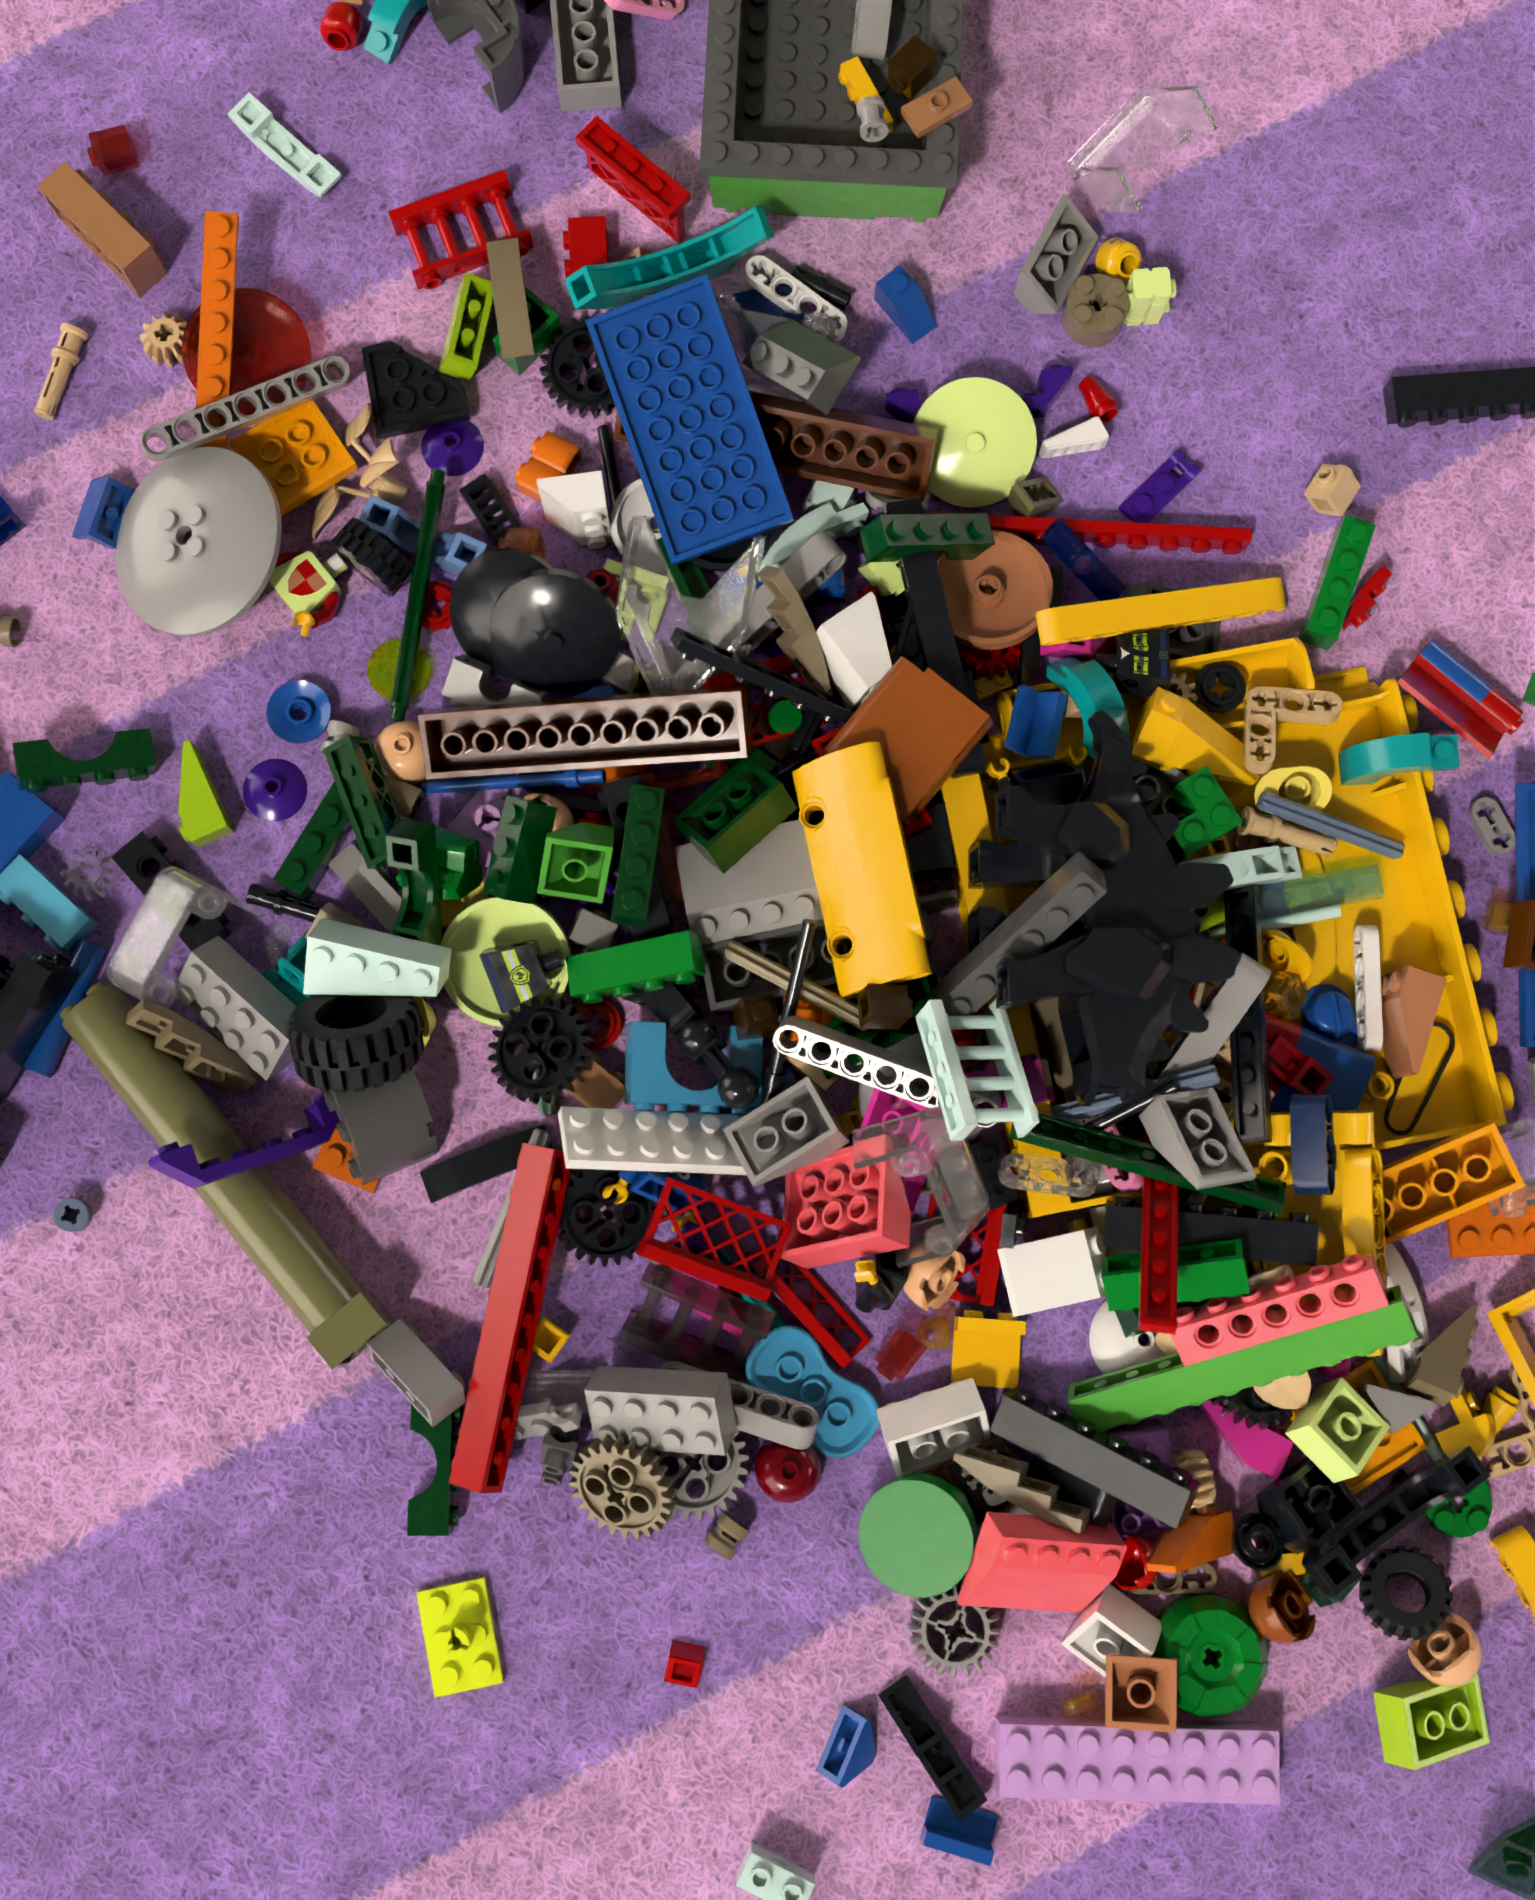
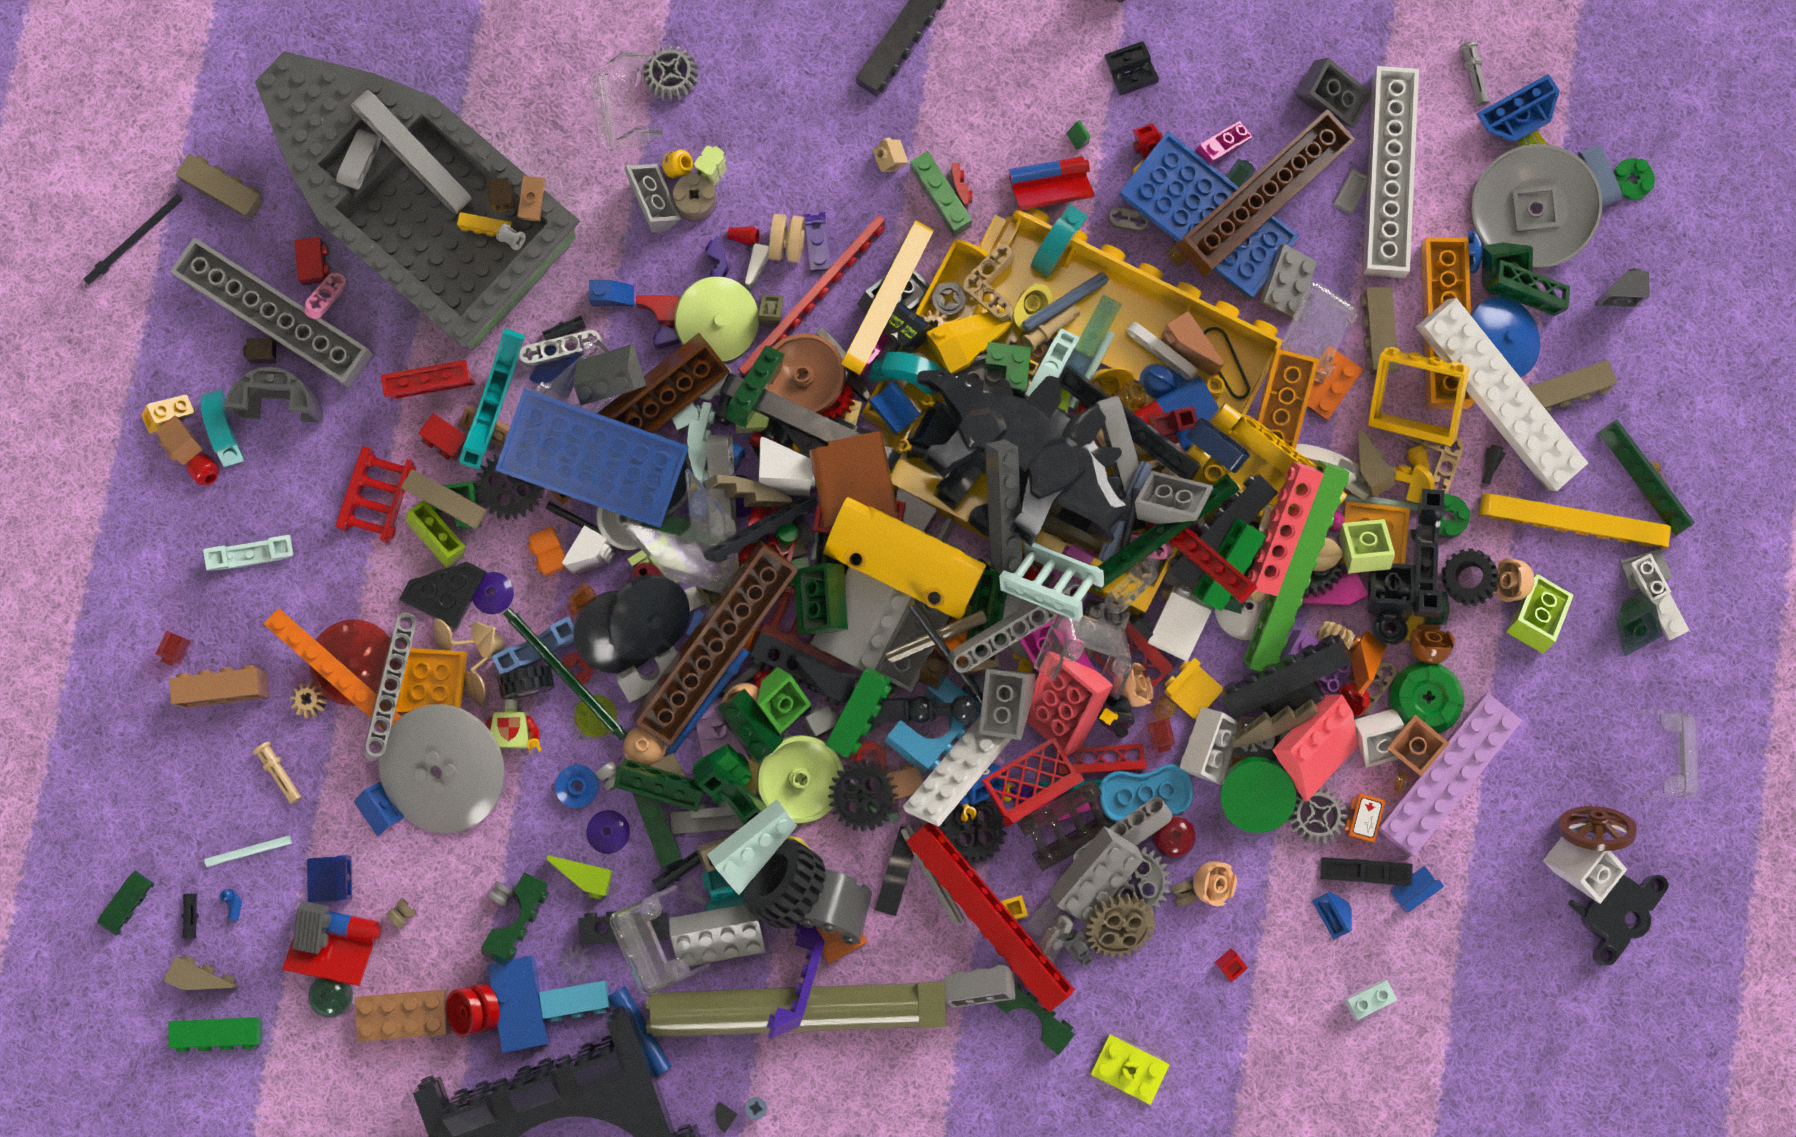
camera: 45 degrees left, 0 degrees up
(37, 1185) = (724, 1116): none -> black tile
(105, 723) = (500, 894): none -> light grey wheel
(201, 1052) = (719, 974): dark tan slope -> none
(477, 487) = (537, 607): black slope -> none
(519, 971) = (813, 774): black torso -> none
(637, 855) = (816, 676): dark green arch -> none
(767, 1565) = (1214, 883): none -> light nougat cylinder
(884, 1006) = (983, 601): dark brown brick -> none
(935, 366) = (661, 306): none -> red arch
(997, 1692) = (1364, 817): none -> brick
(1069, 548) = (815, 315): clear blue piece -> none
(1134, 446) = (789, 238): none -> tan wheel
(1204, 181) = (675, 65): none -> light grey gear
(1394, 1407) = (1376, 509): light grey slope -> none

